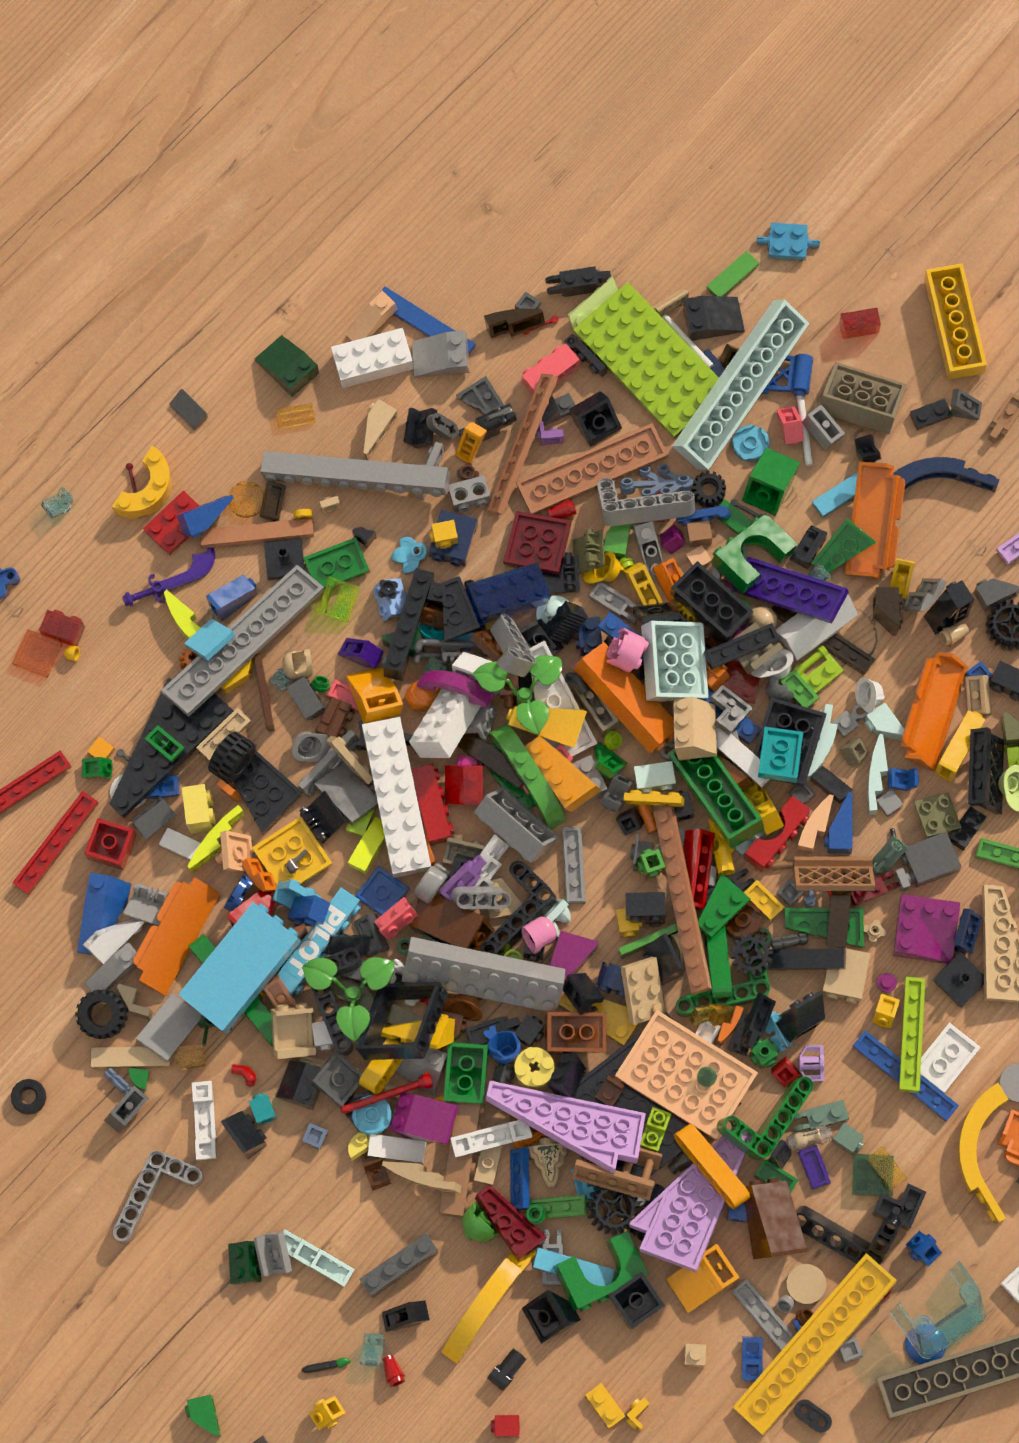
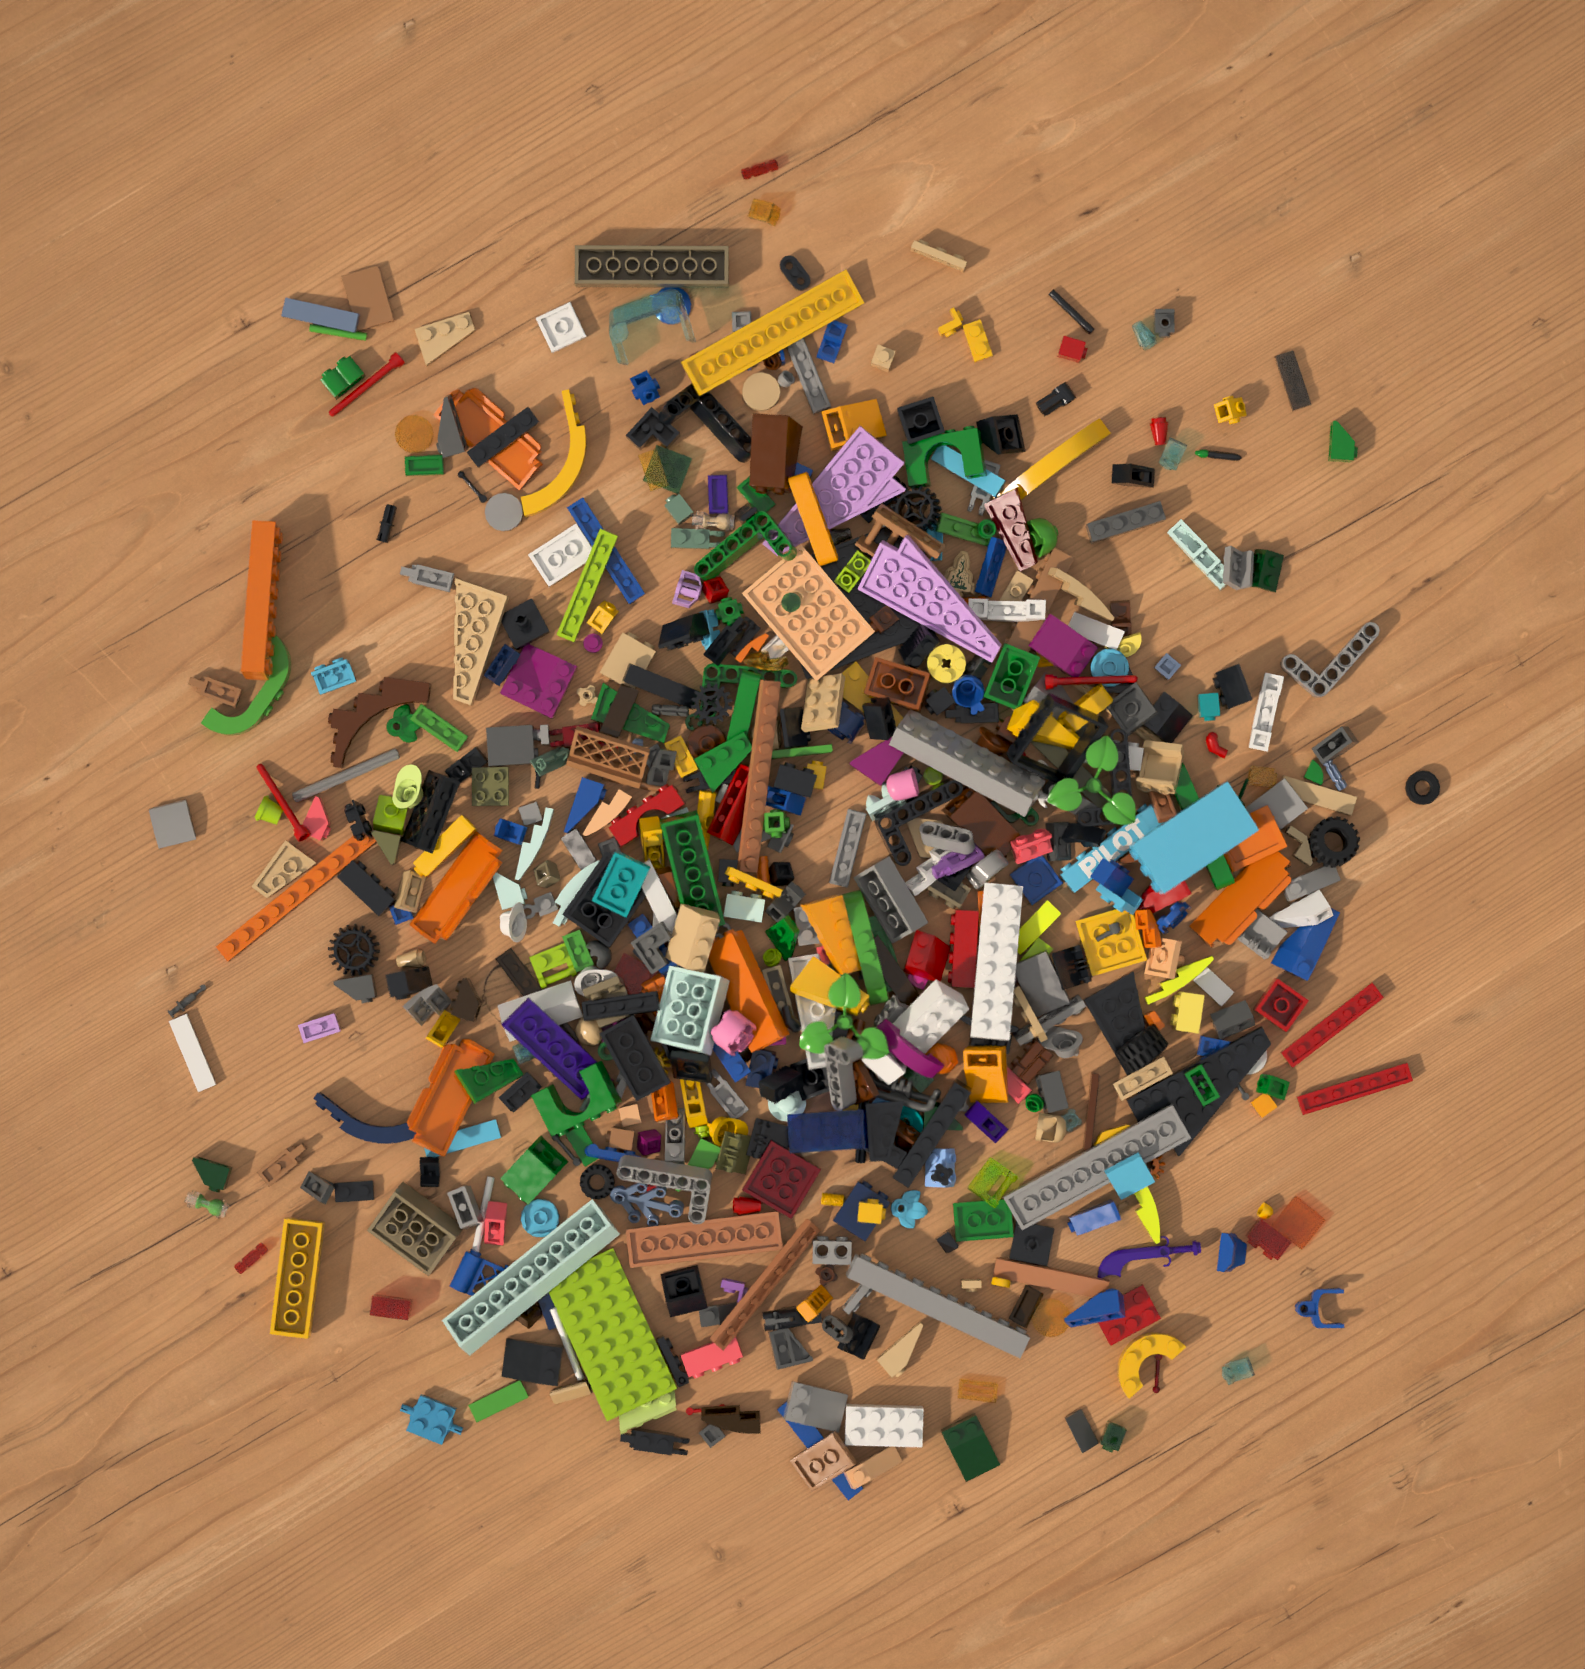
camera: 165 degrees left, 15 degrees up
(93, 606) = (1231, 1252): none -> blue slope
(157, 412) = (1112, 1436): none -> clear green brick
(166, 996) = (1260, 844): none -> orange piece
(418, 310) = (823, 1461): none -> medium nougat tile
(481, 541) = (832, 1199): none -> yellow piece
(650, 884) = (785, 800): none -> blue slope
(779, 882) = (660, 767): none -> dark grey slope
(1003, 328) = (250, 1258): none -> clear red axle

